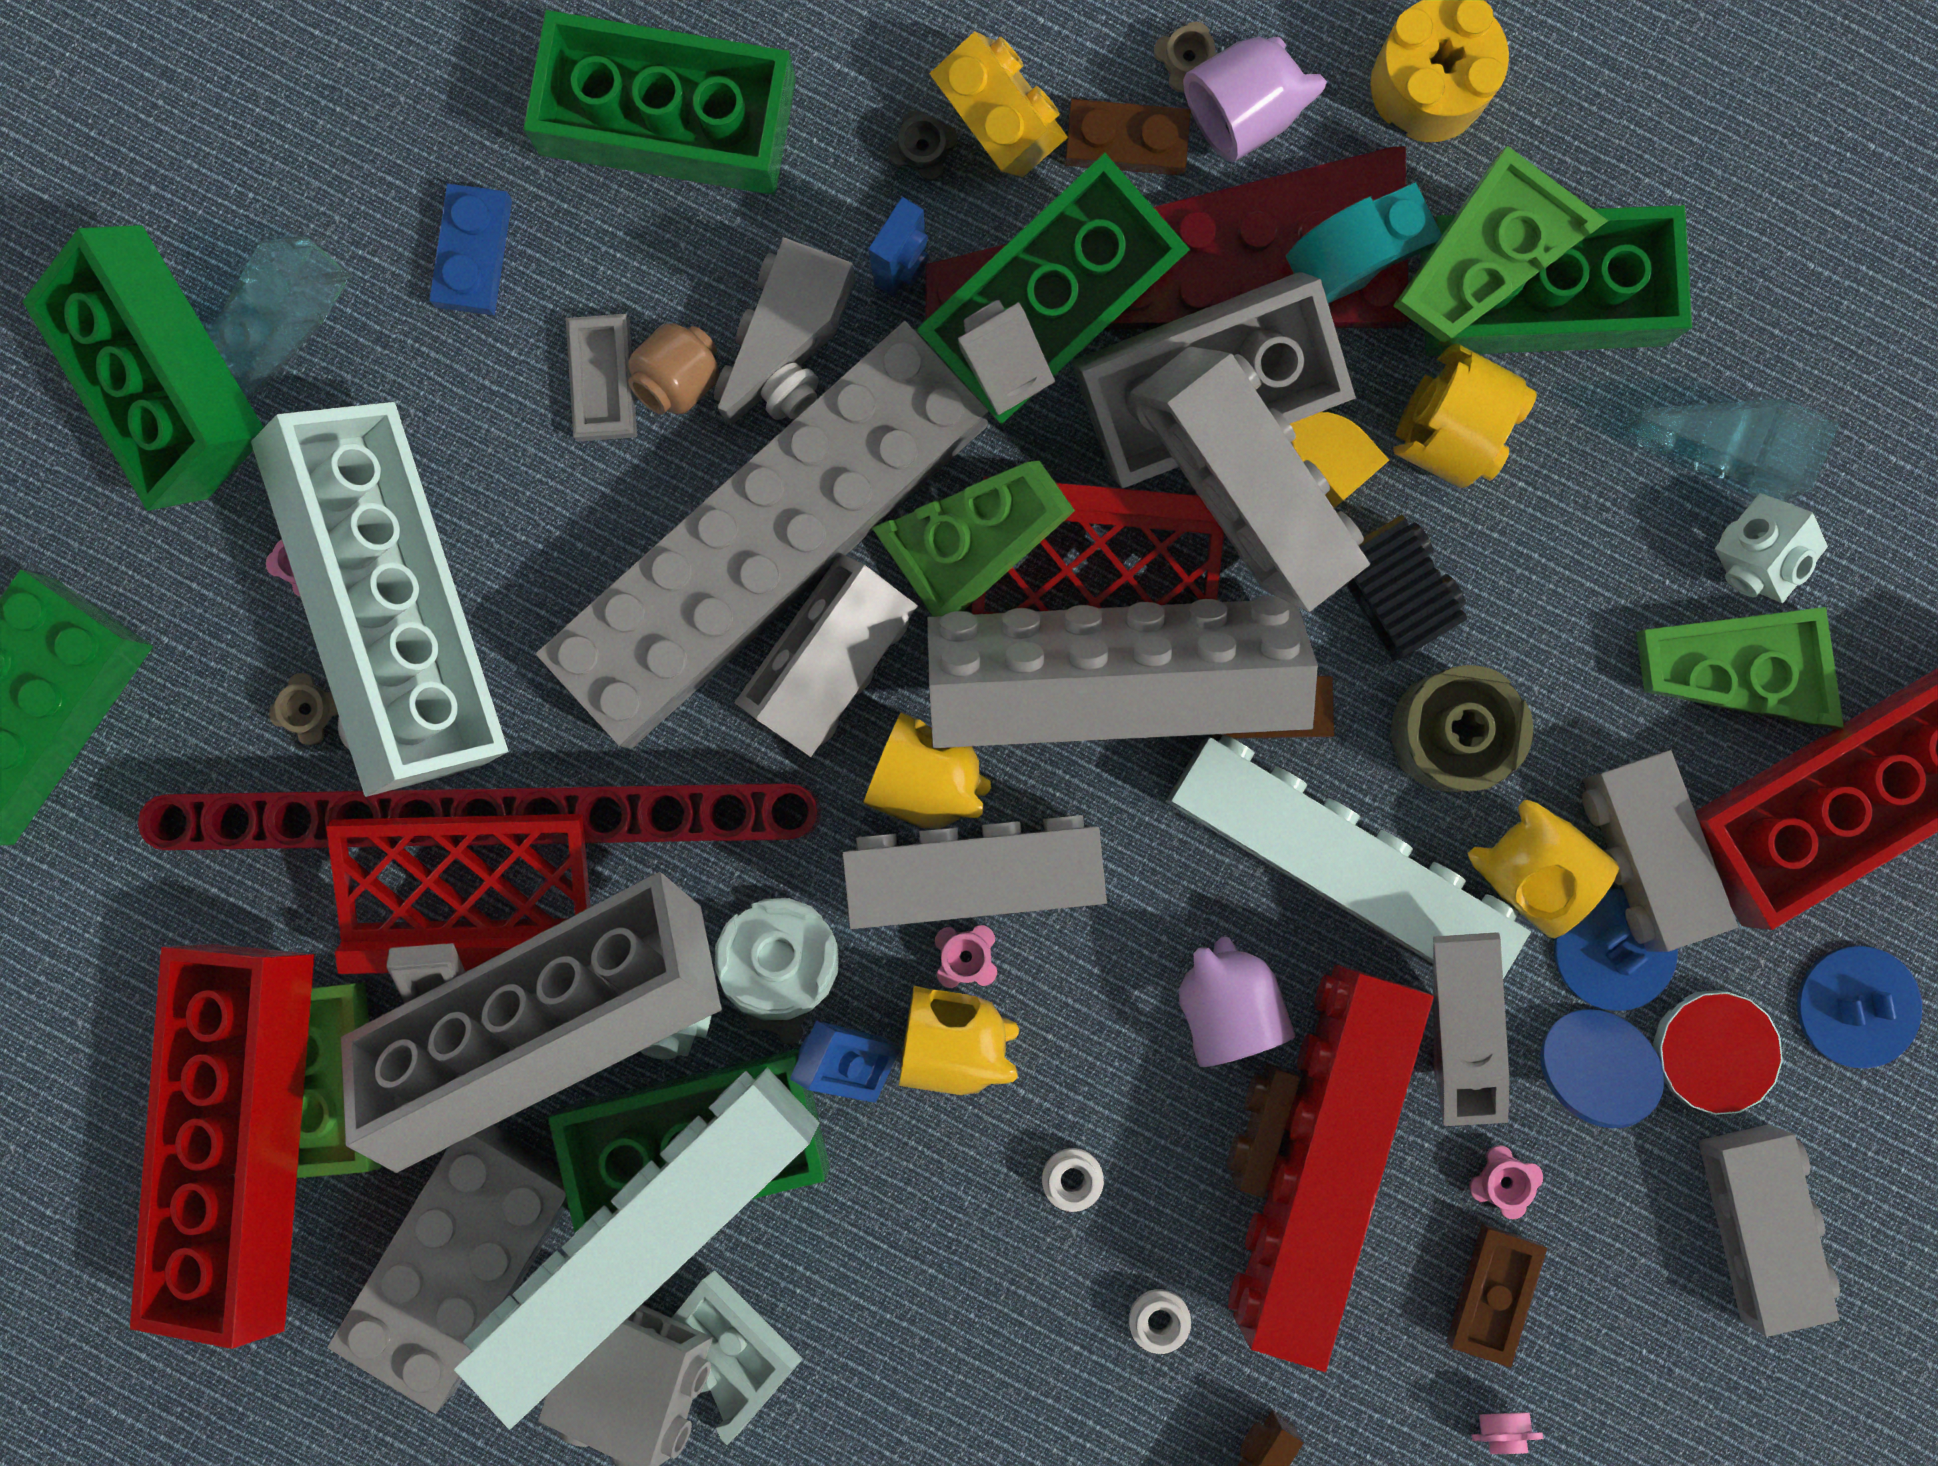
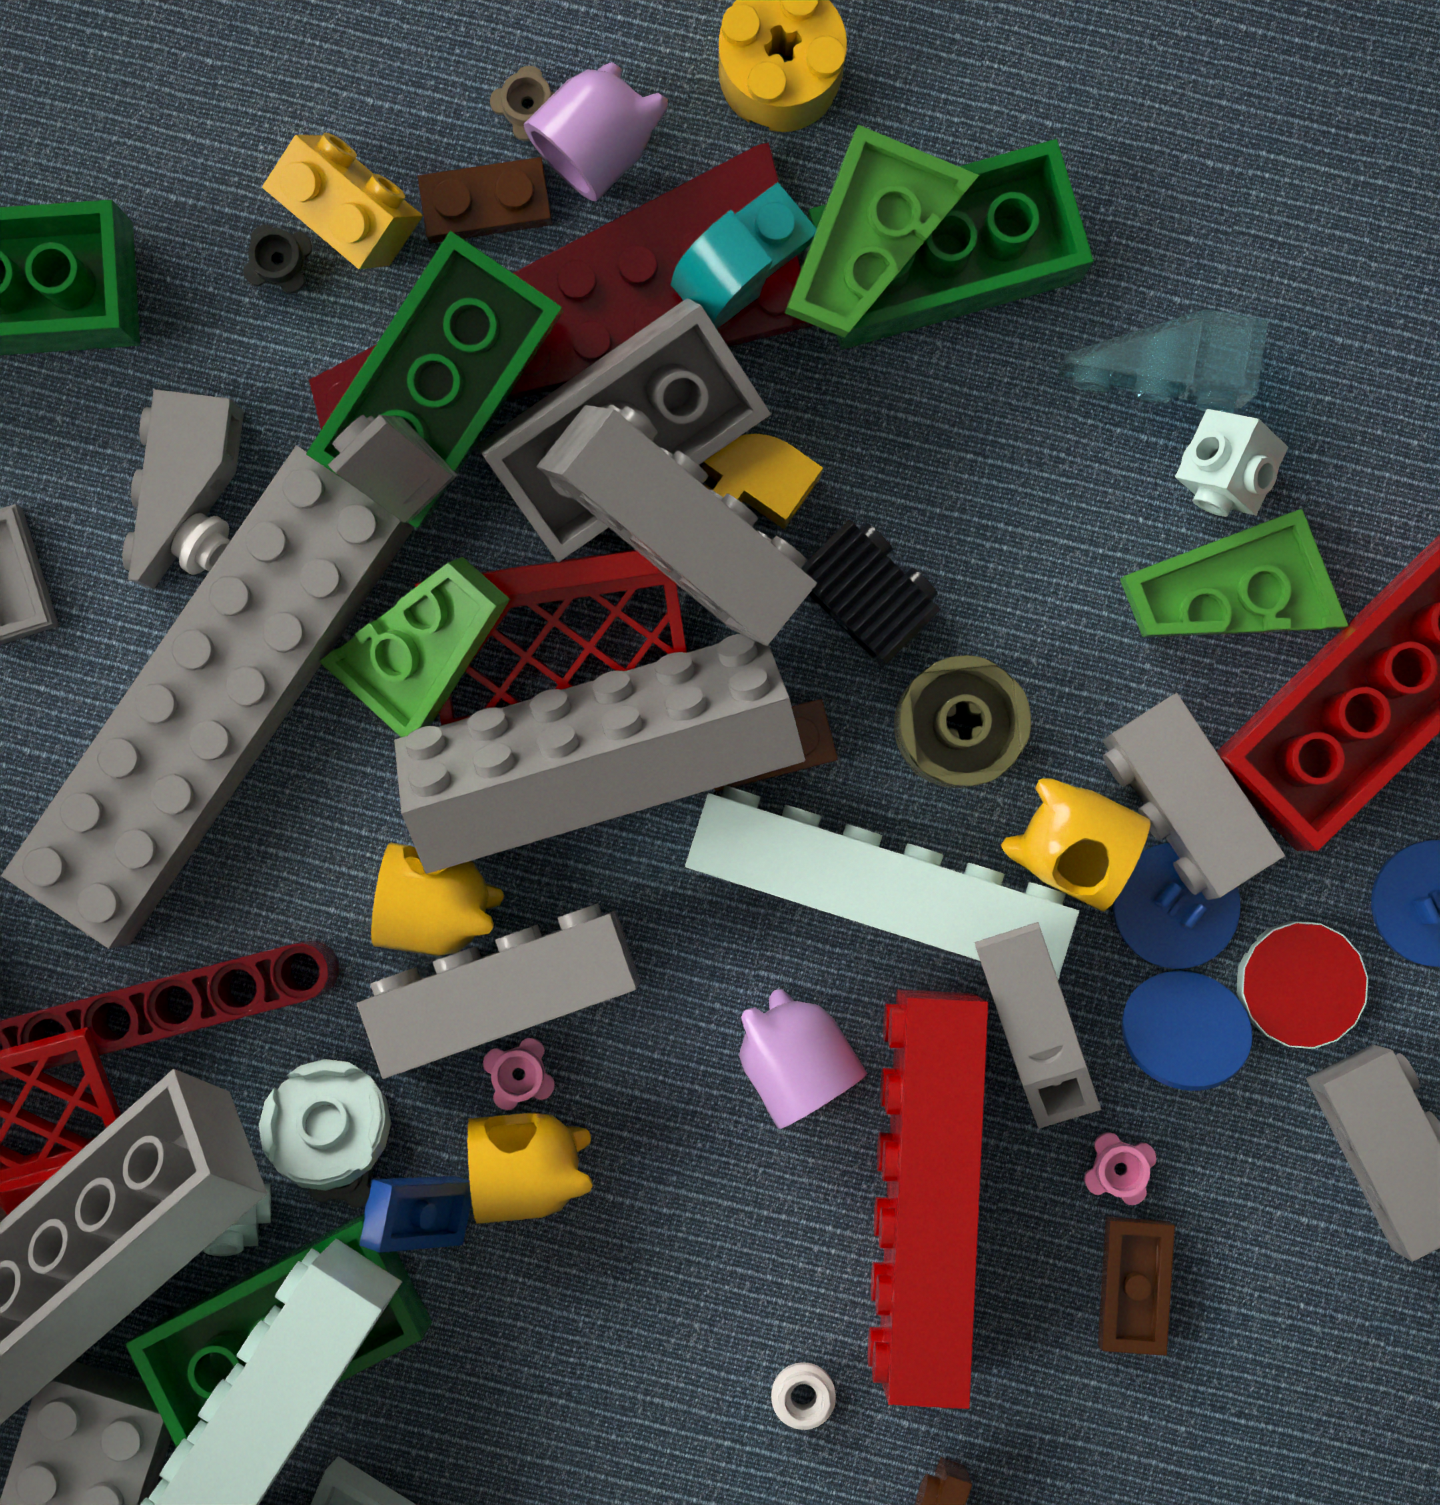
camera: 15 degrees left, 0 degrees up
(673, 368) = (76, 549): medium nougat head -> none
(827, 654) = (300, 804): light grey brick -> none
(899, 248) = (274, 372): blue plate -> none
(1078, 1198) = (675, 1293): white plate -> none
(1255, 1153) = (856, 1203): reddish brown plate -> none
(1463, 418) = (888, 407): yellow brick -> none
(1506, 1432) = (1178, 1422): bright pink plate -> none

